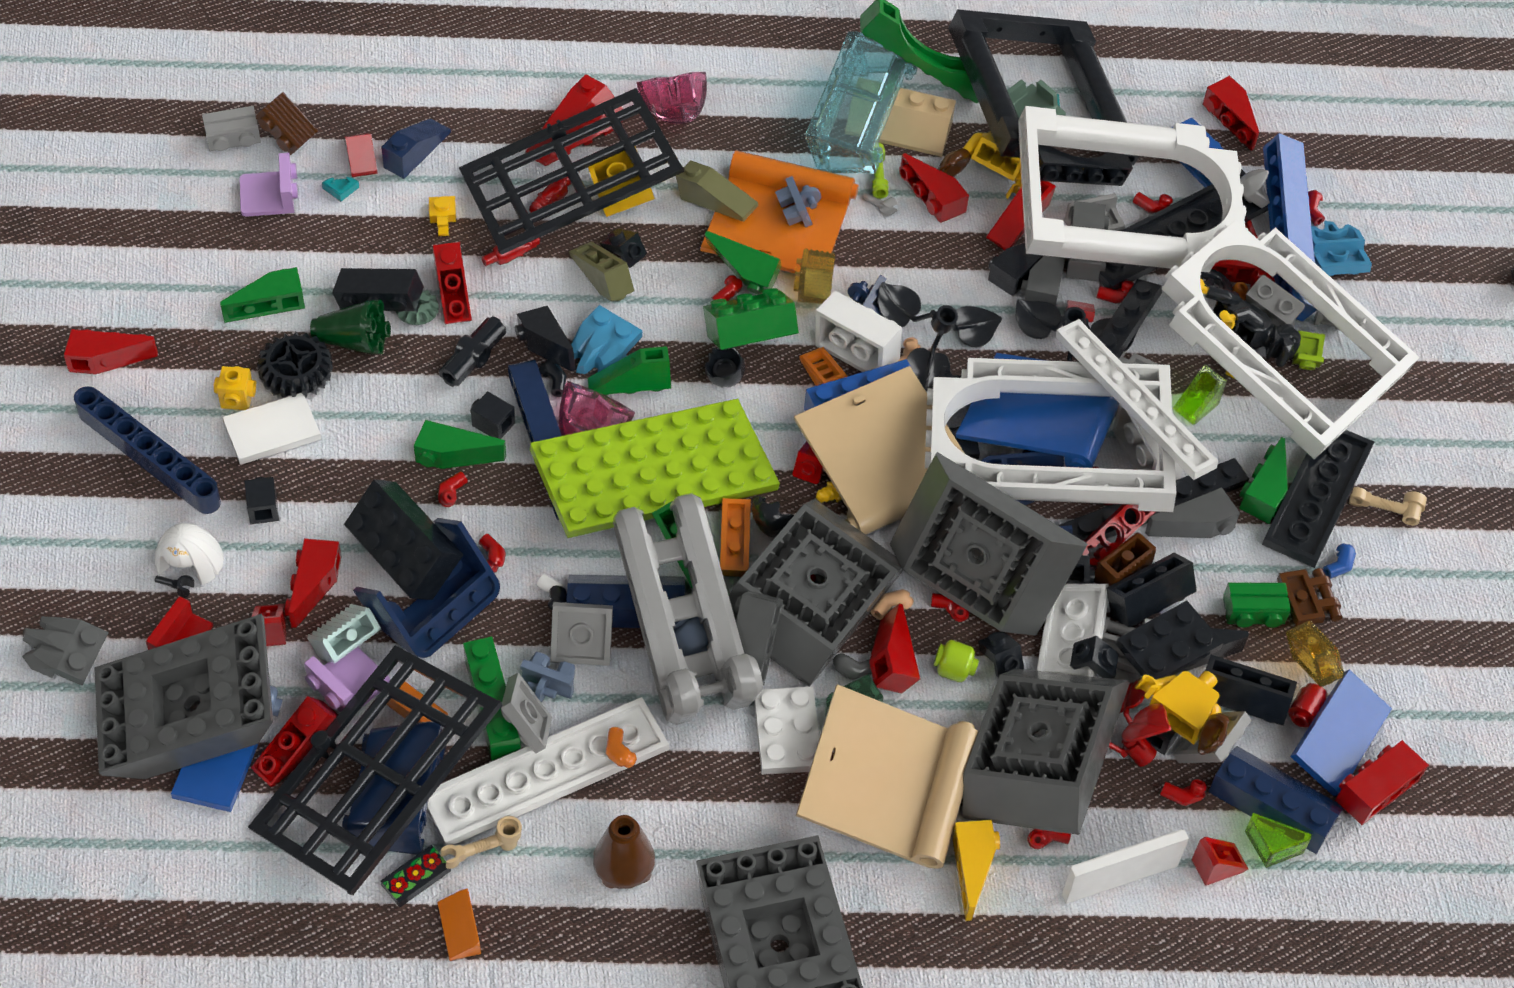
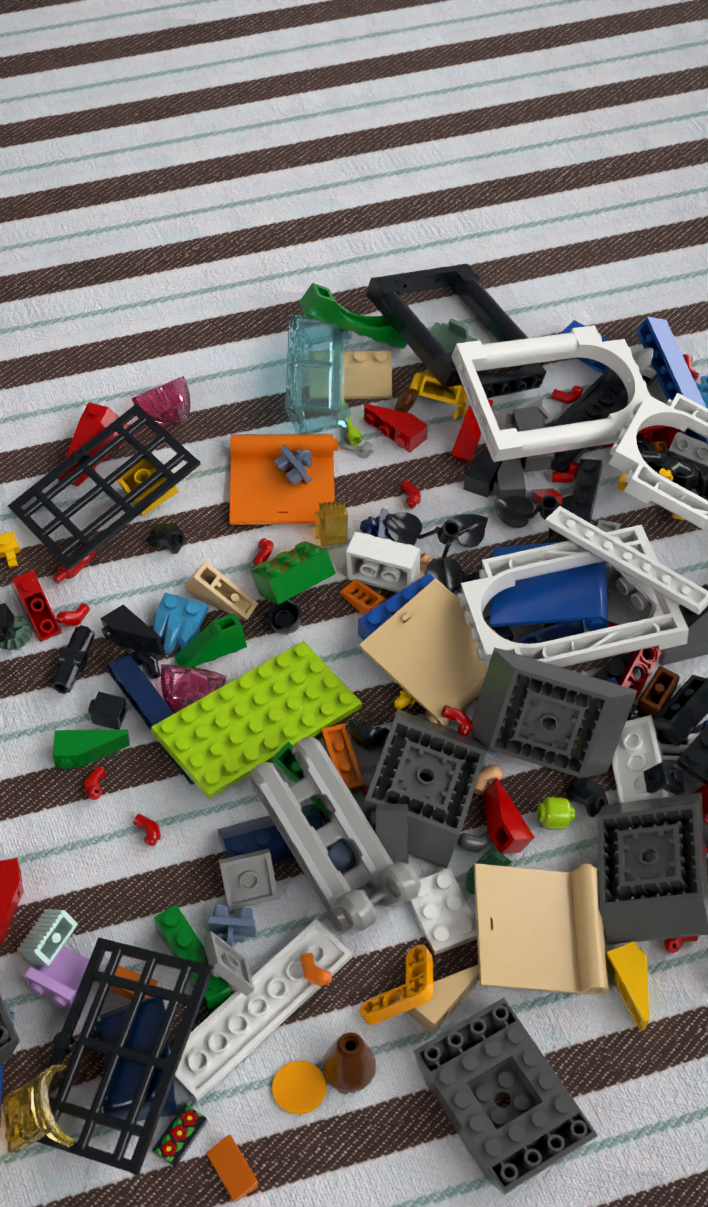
camera: 15 degrees left, 0 degrees up
(262, 805) = (29, 1113): none -> clear yellow piece
(293, 740) = (37, 1044): red slope -> none
(403, 539) = (72, 841): black brick -> none
(431, 623) = (125, 885): dark blue windscreen -> none
(489, 307) = (73, 618): none -> red arm
(506, 836) = (244, 1067): tan brick -> none
(551, 194) = (91, 511): red piece -> none
(556, 590) = (212, 846): arm -> none
(561, 866) = (299, 1087): none -> light orange piece
(604, 270) = (157, 561): olive slope -> none
(662, 321) = (220, 592): none -> tan slope
(711, 190) = (226, 474): olive slope -> none
(718, 802) = (410, 995): none -> light orange beam
(750, 265) = (277, 527): green slope -> none
(752, 818) = (446, 997): none -> tan slope
(807, 465) = (379, 680): red bracket -> none
(883, 527) = (460, 717): none -> red arm
(926, 269) = (413, 493): none -> red arm
(956, 611) = (538, 770): red arm -> none
(1201, 395) = (664, 538): clear neon green slope -> none
(1233, 109) = (600, 305): red slope -> none

